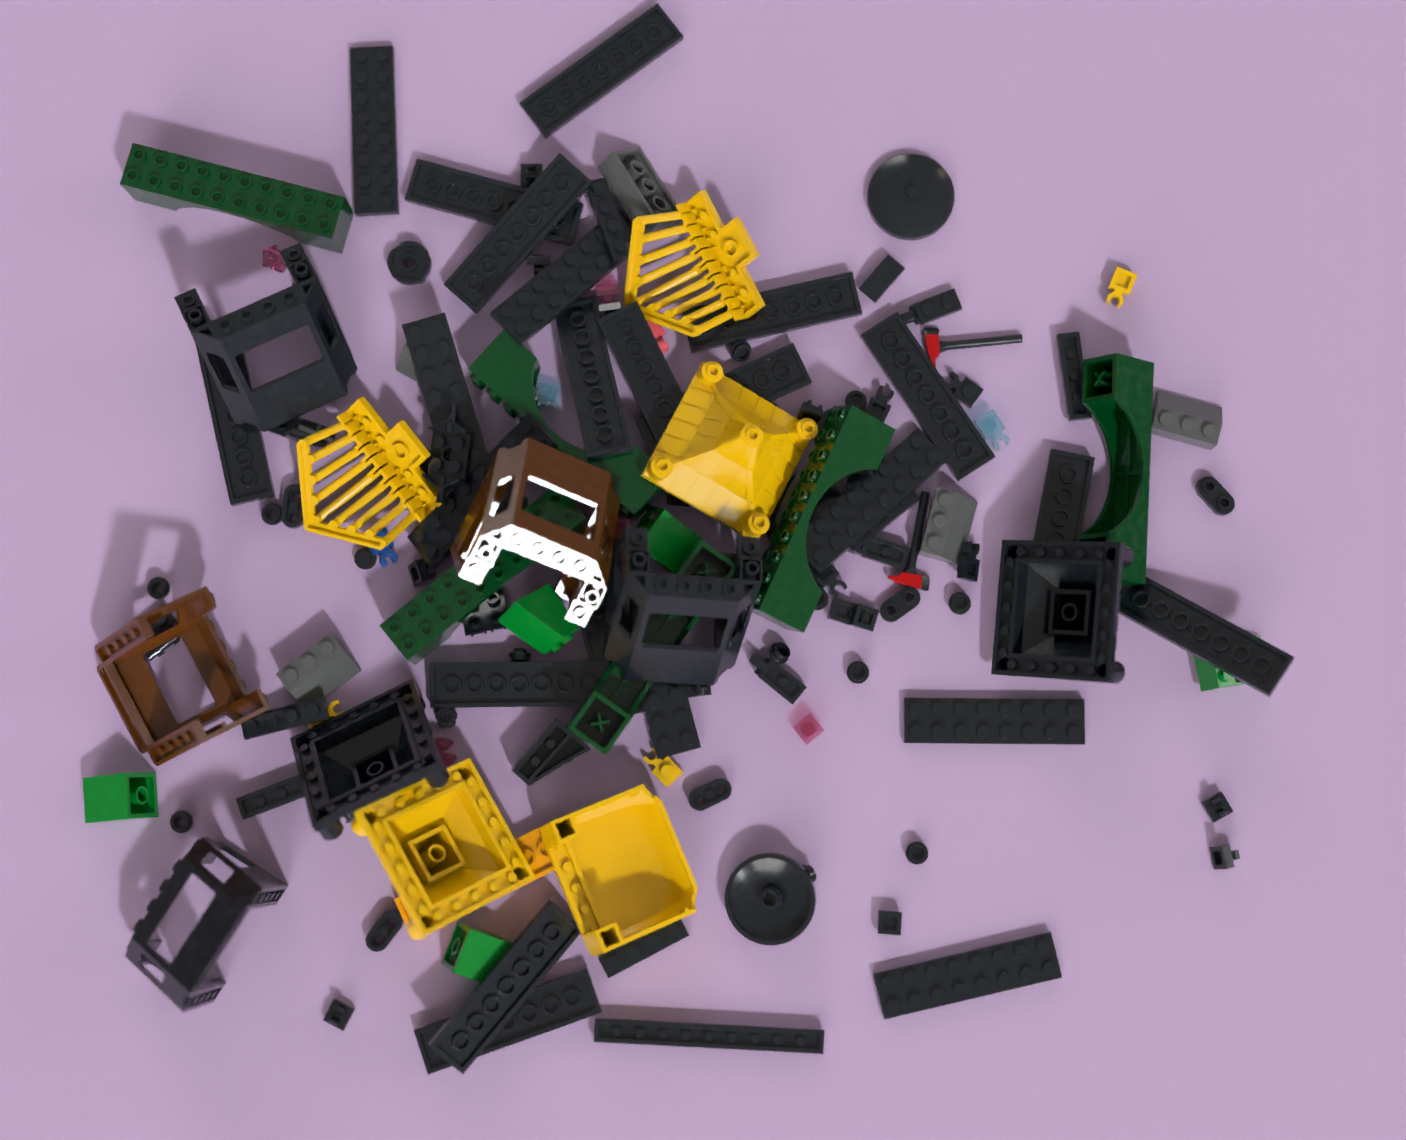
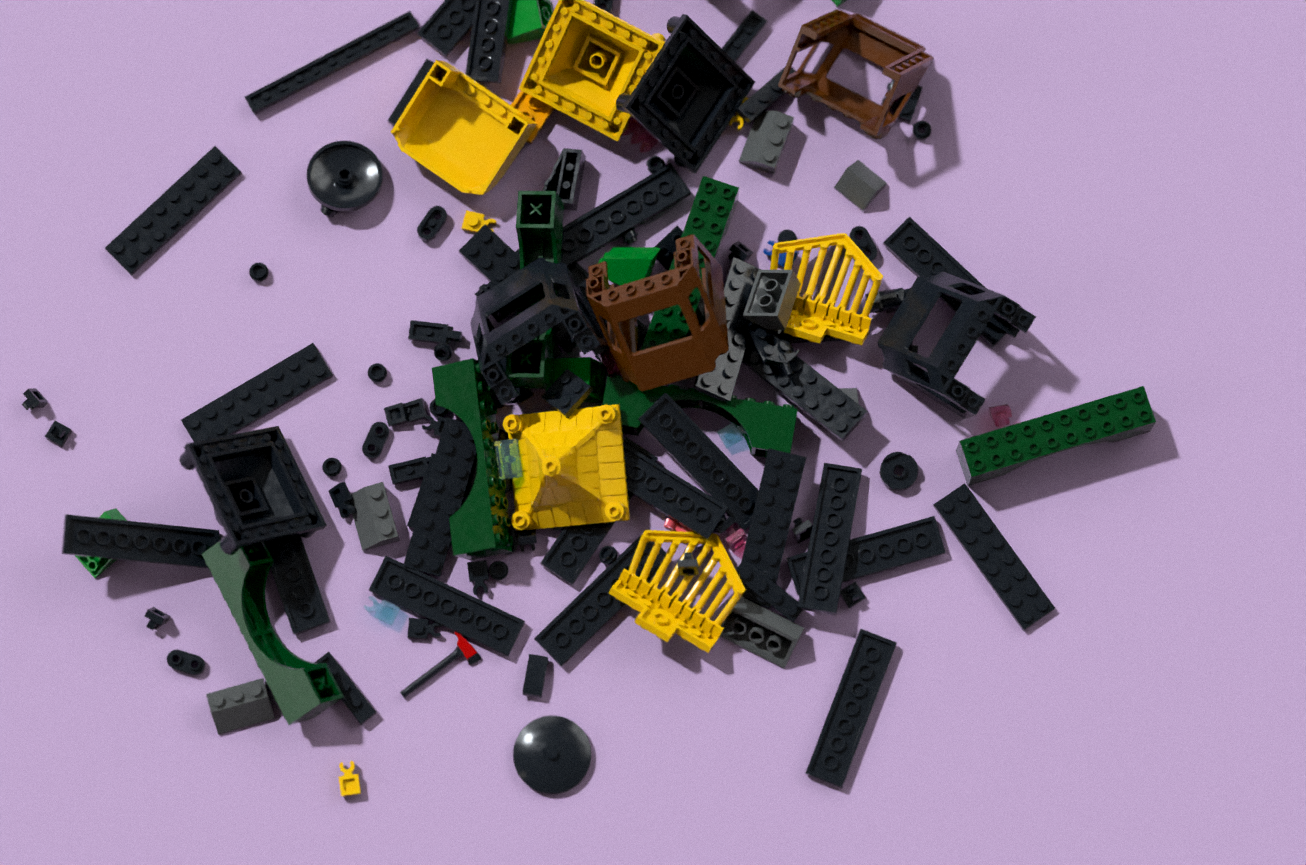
camera: 145 degrees right, 5 degrees down
(257, 569) = (859, 185): none -> dark grey slope
(265, 514) = (876, 224): black plate -> none
(420, 493) = (772, 298): none -> dark grey slope
(671, 284) = (688, 566): none -> black tile
(684, 521) = (567, 393): none -> black plate
(783, 493) = (508, 459): none -> clear light blue slope
(808, 729) = (389, 310): clear pink plate -> none
(889, 922) = (249, 212): black plate -> none
(909, 576) = (380, 464): black piece -> none
(933, 308) = (483, 677): black hinge -> none
(1221, 555) = (156, 618): none -> black tile

